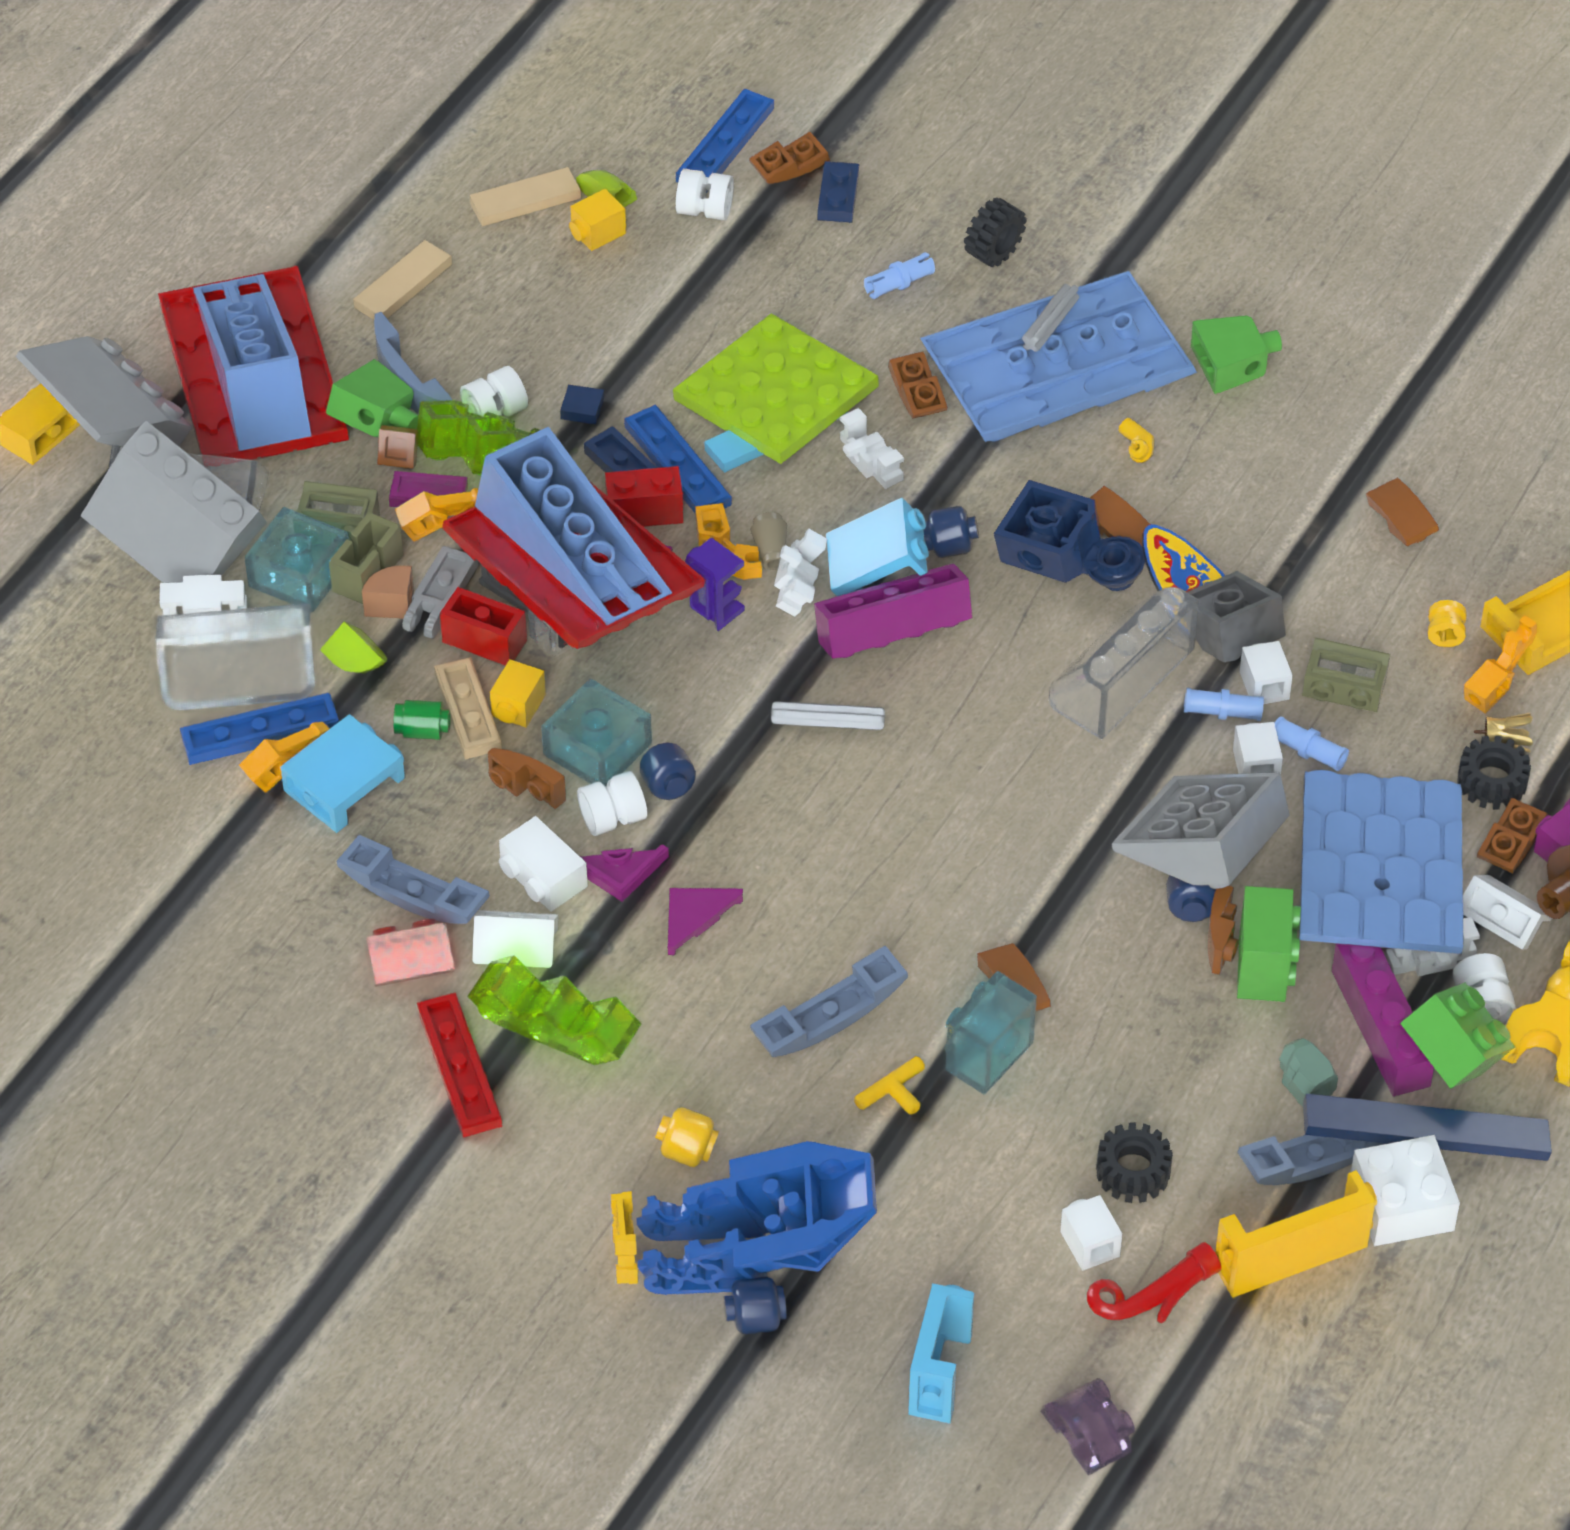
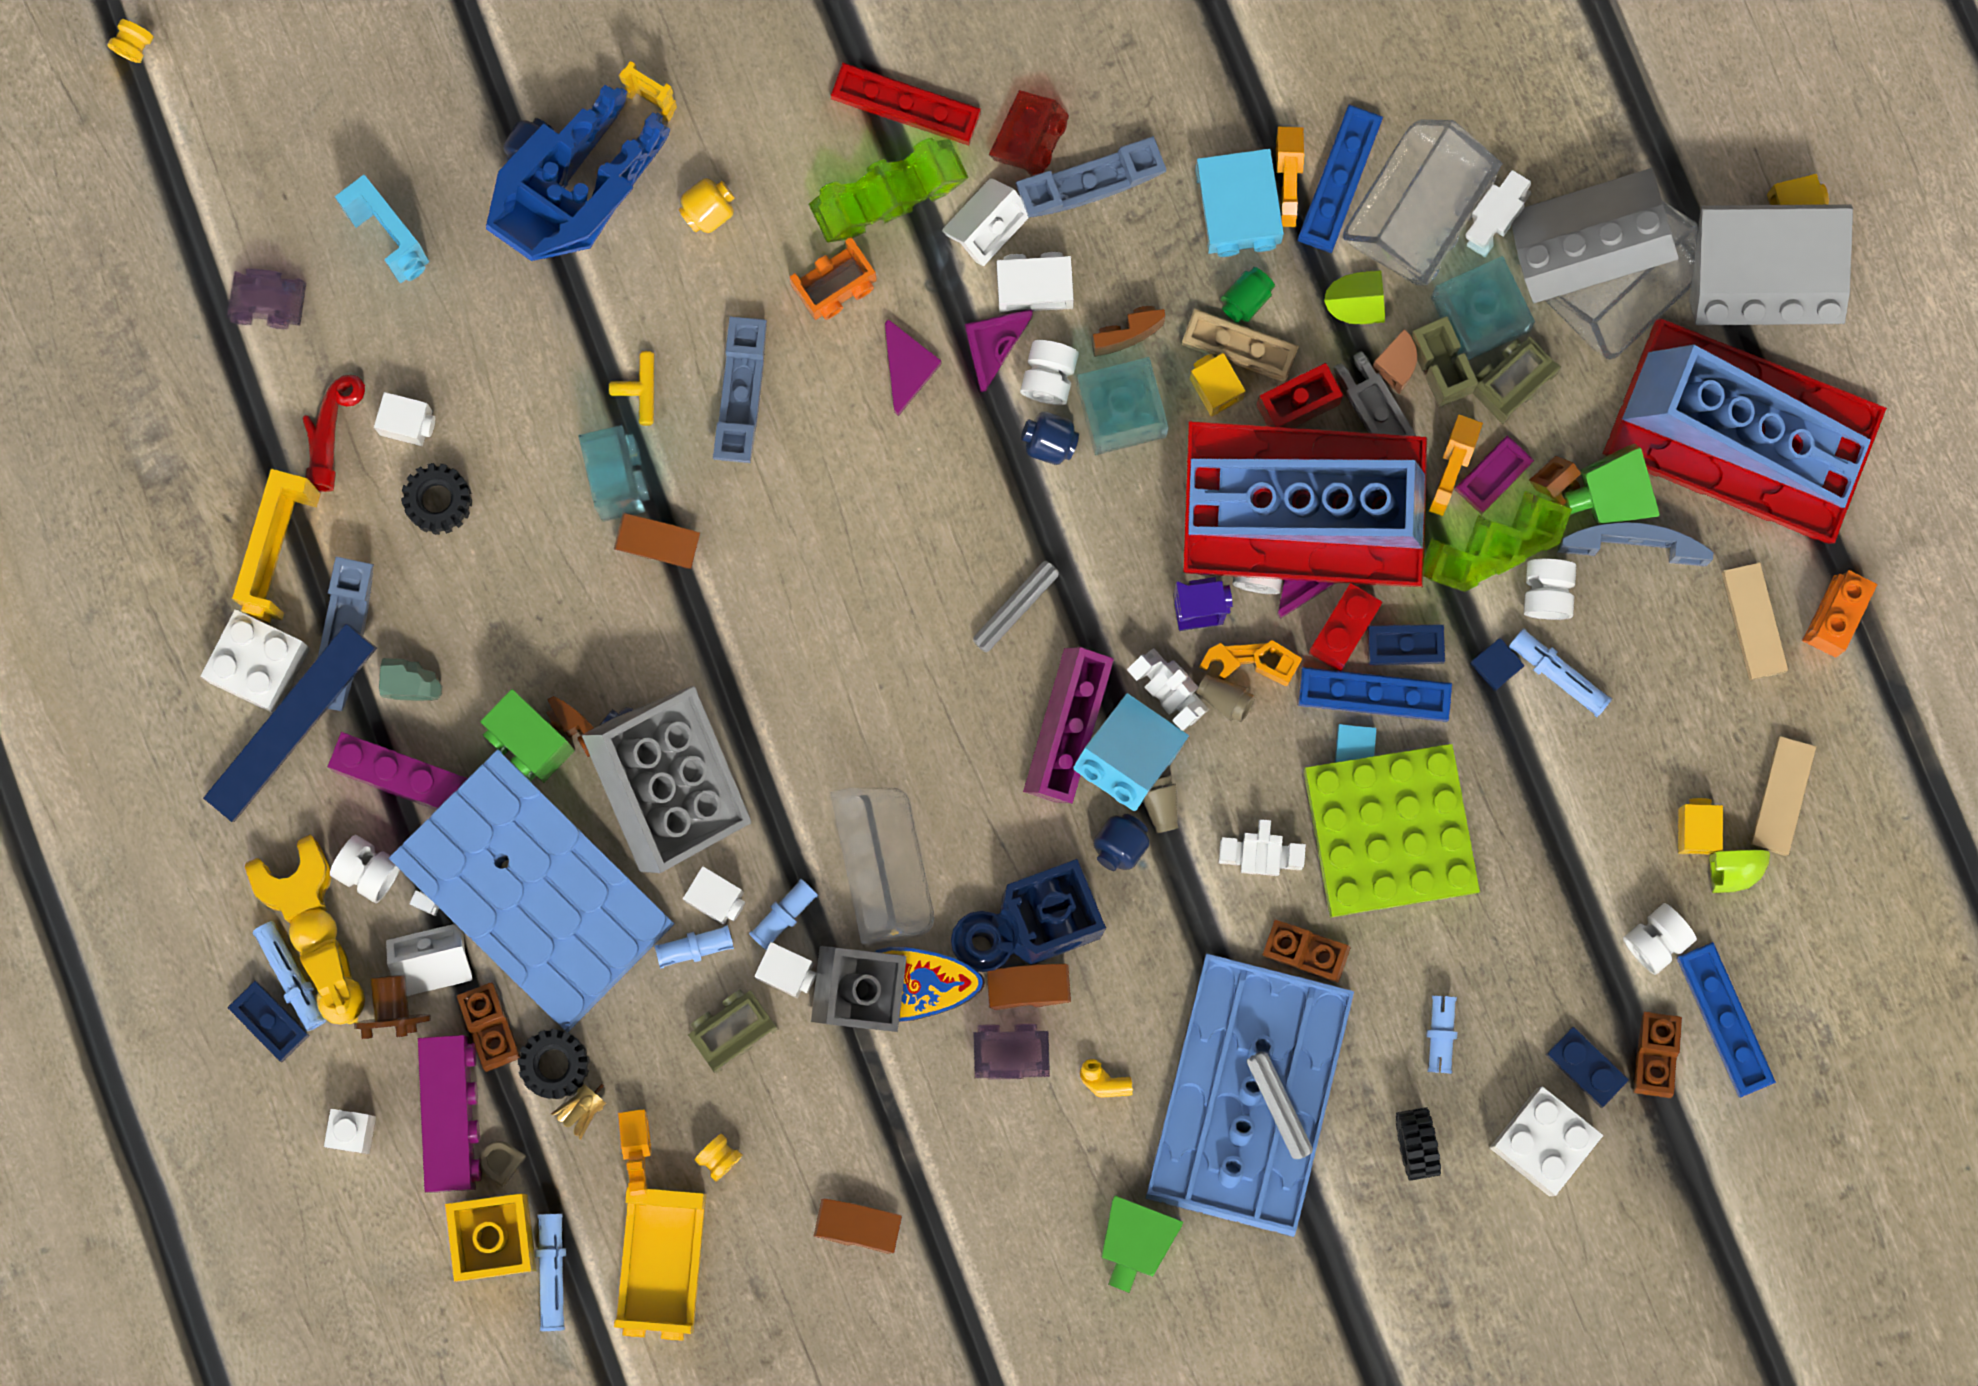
camera: 130 degrees right, 30 degrees up
(352, 231) = (1839, 613): none -> orange window
(552, 372) = (1560, 672): none -> light blue pin
(670, 1003) = (835, 281): none -> orange window
(918, 174) = (1546, 1141): none -> white brick
(1176, 498) = (1011, 1054): none -> clear purple cylinder
(1458, 1034) = (329, 797): bright green brick -> none

